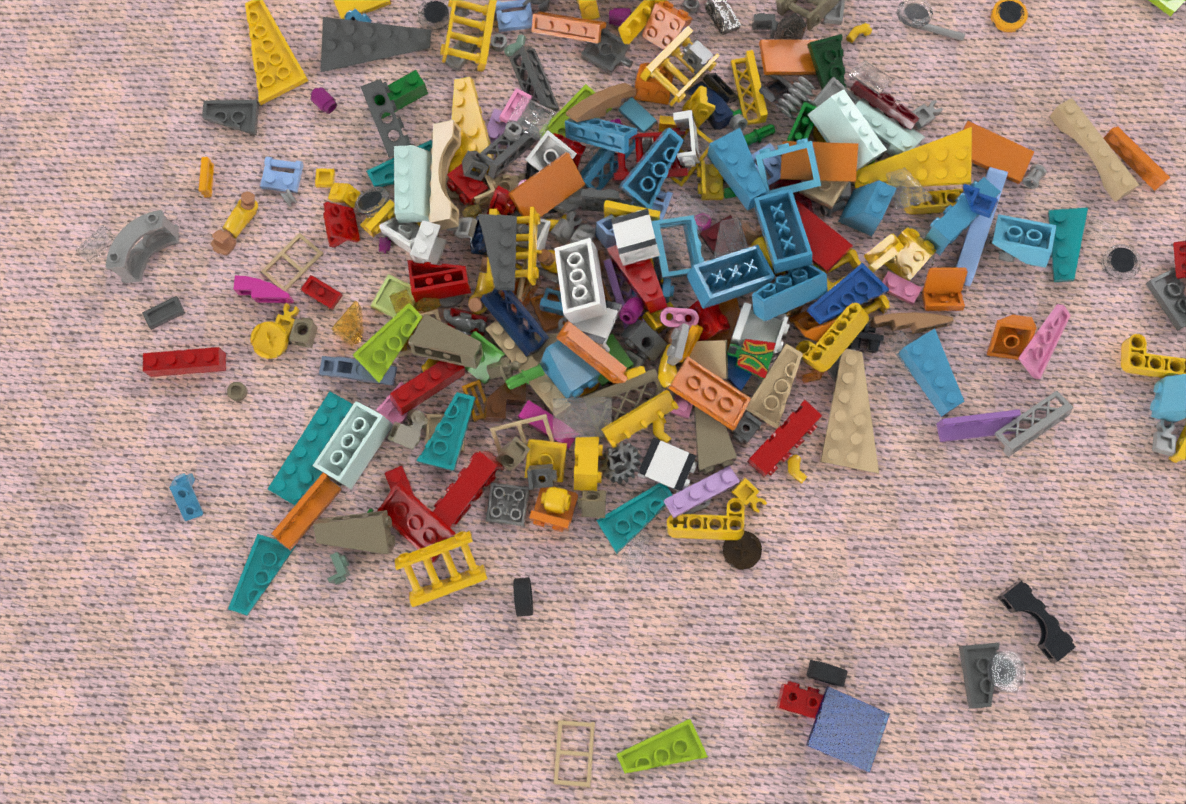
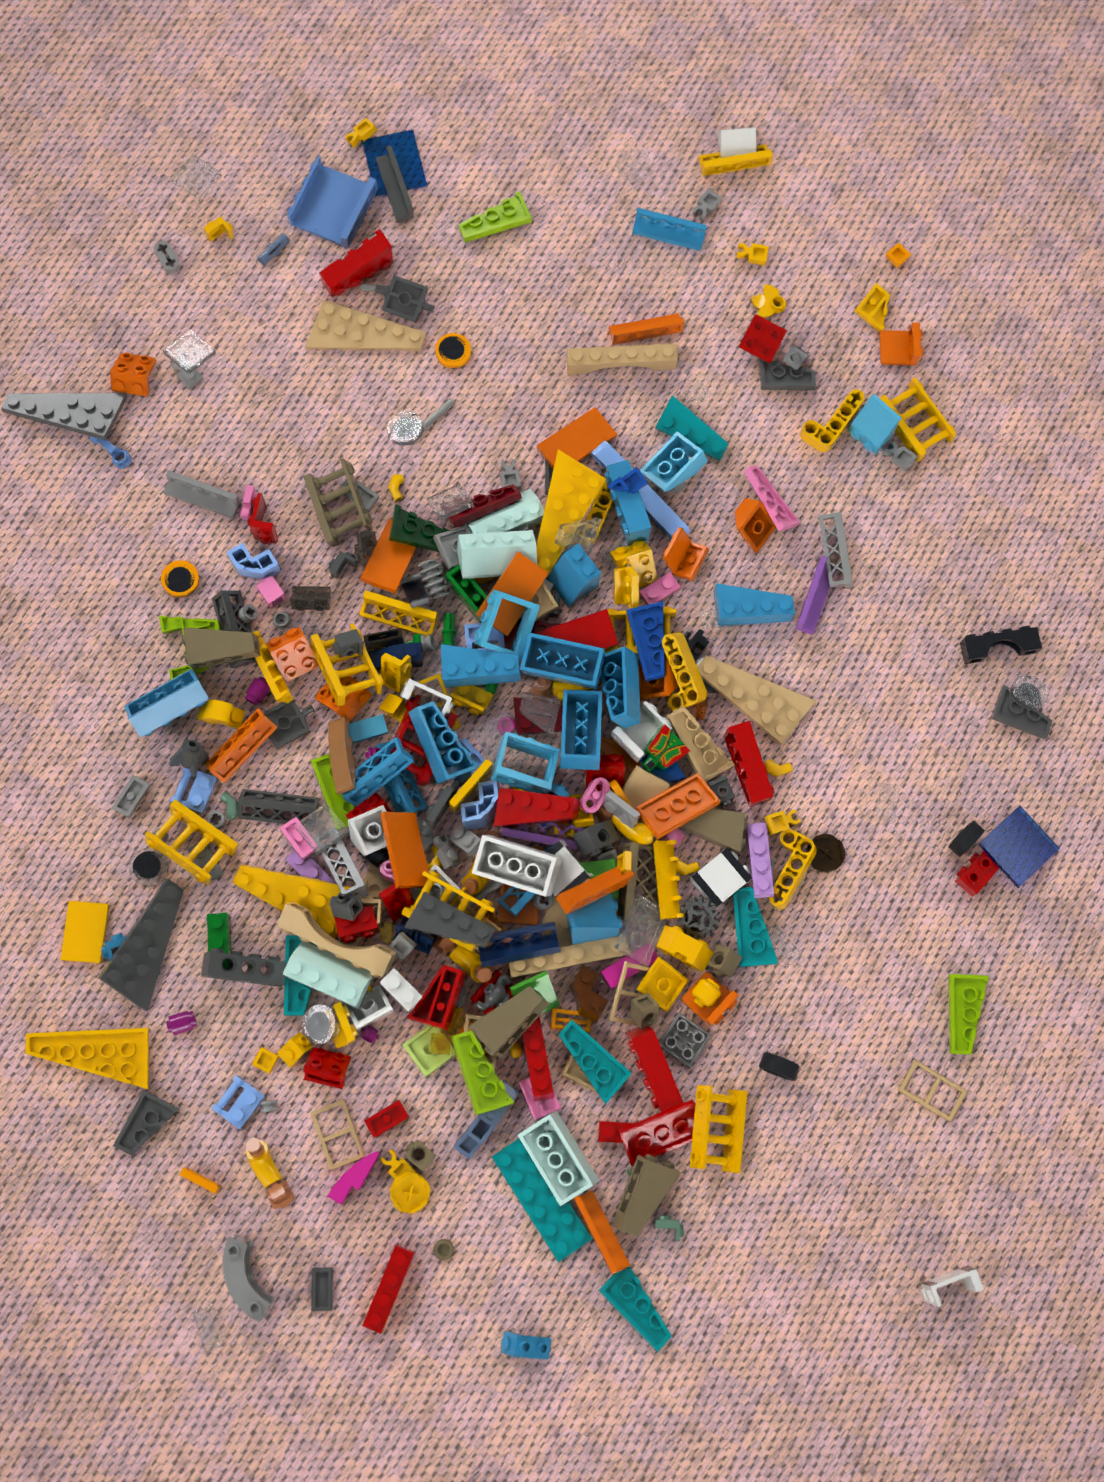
camera: 75 degrees left, 0 degrees up
(350, 325) = (437, 1105): clear yellow slope -> none
(409, 434) = (574, 1100): dark tan brick -> none
(502, 368) = (559, 979): dark tan piece -> none
(511, 126) = (327, 848): light grey bush -> none
(525, 377) = (581, 962): bright green axle -> none
(545, 470) = (677, 994): dark grey brick -> none
(631, 310) = (568, 834): magenta brick -> none
(635, 237) = (502, 793): white panel -> none
(916, 321) = (699, 594): medium nougat slope -> none
(1038, 175) = (619, 426): light grey bush -> none
(1121, 262) = (732, 397): tile -> none

